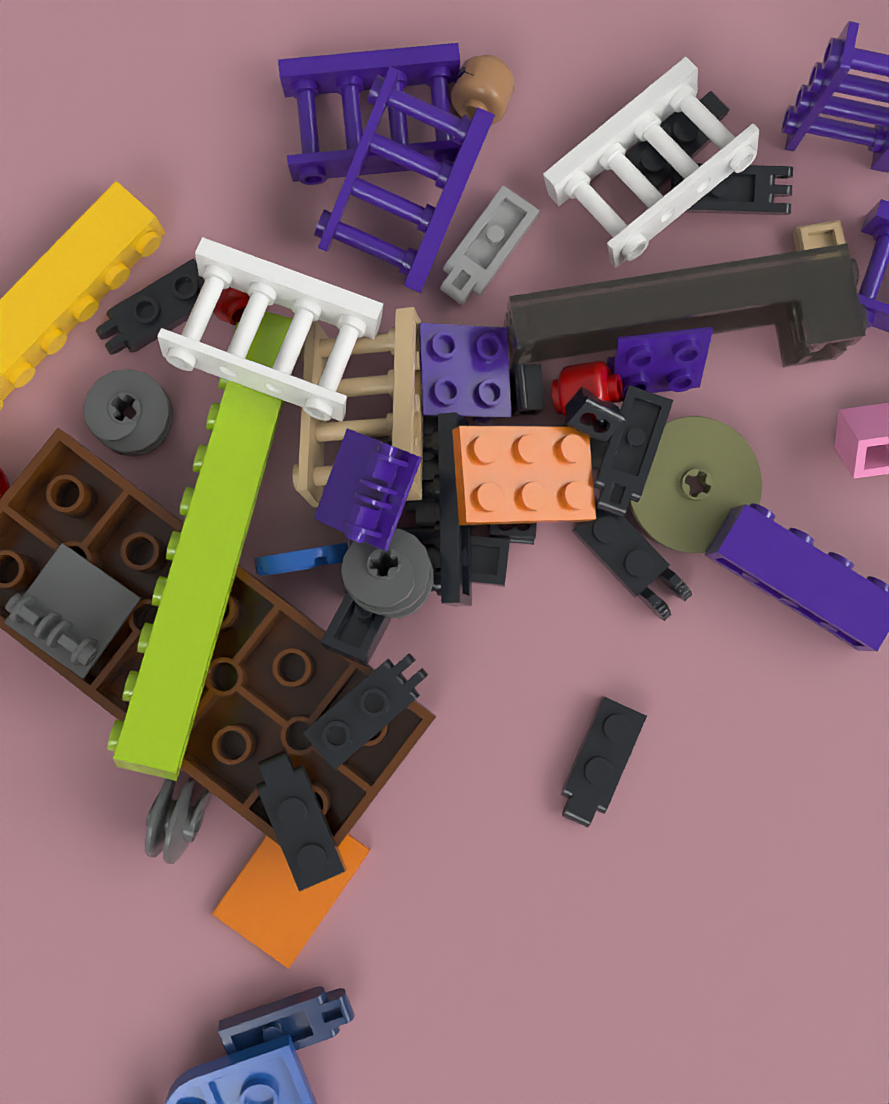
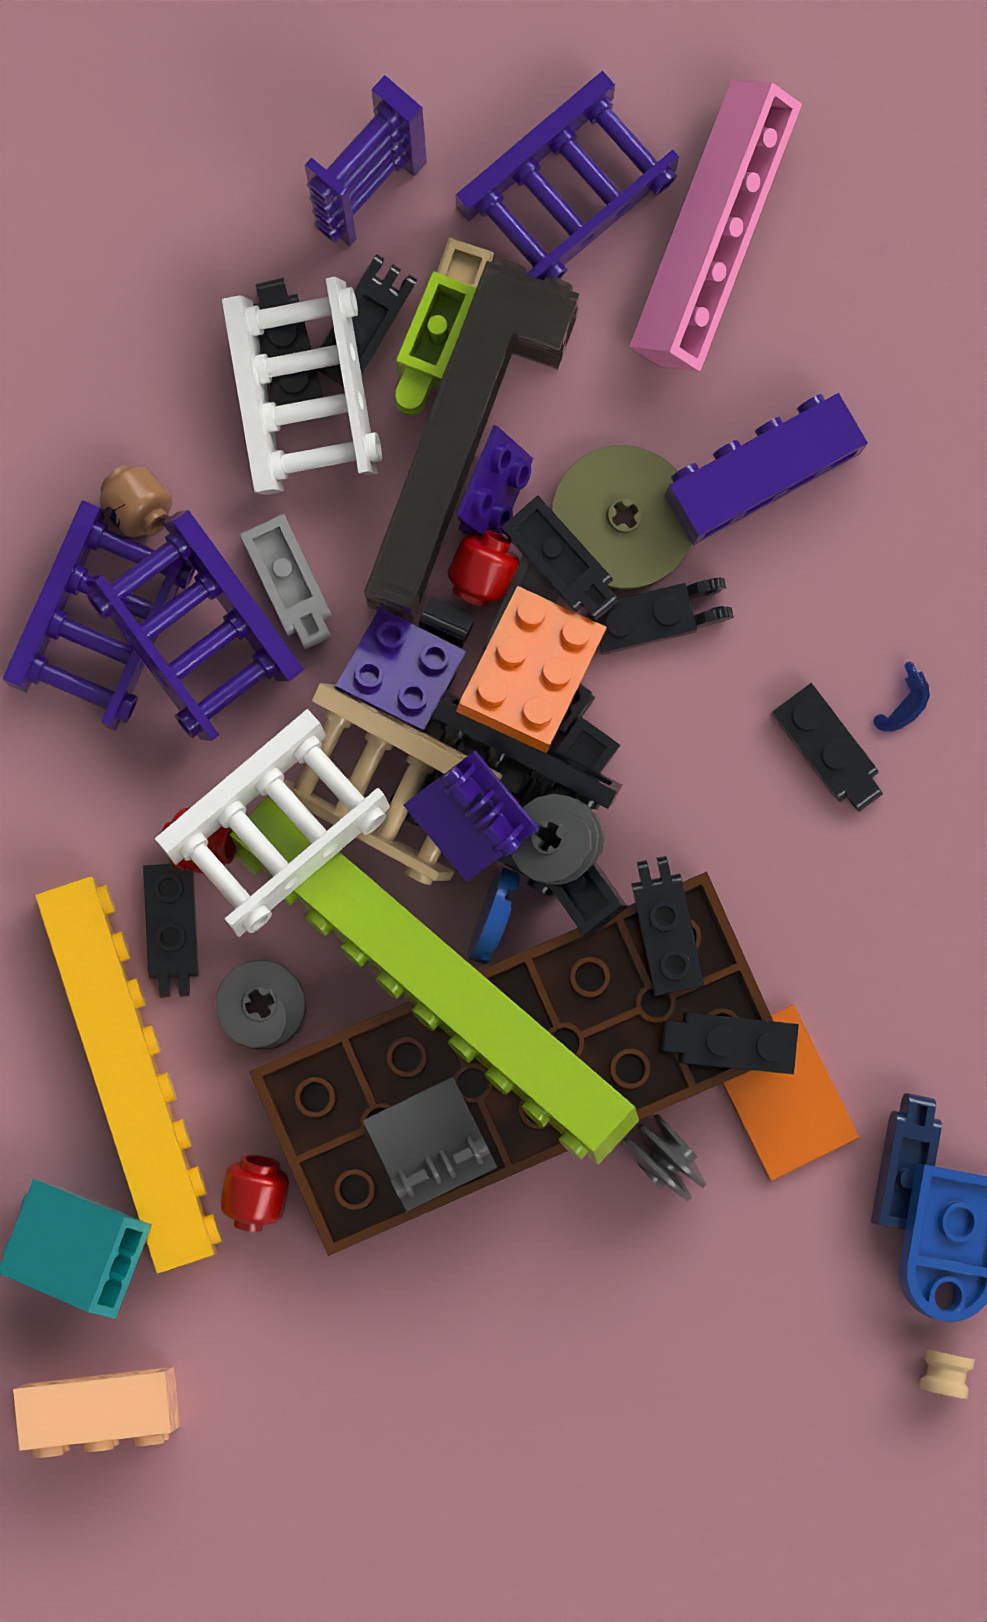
camera: 55 degrees left, 0 degrees up
(579, 416) = (499, 580): black piece -> none
(676, 810) = (911, 706): none -> clear blue piece
(749, 239) = (431, 341): none -> lime brick

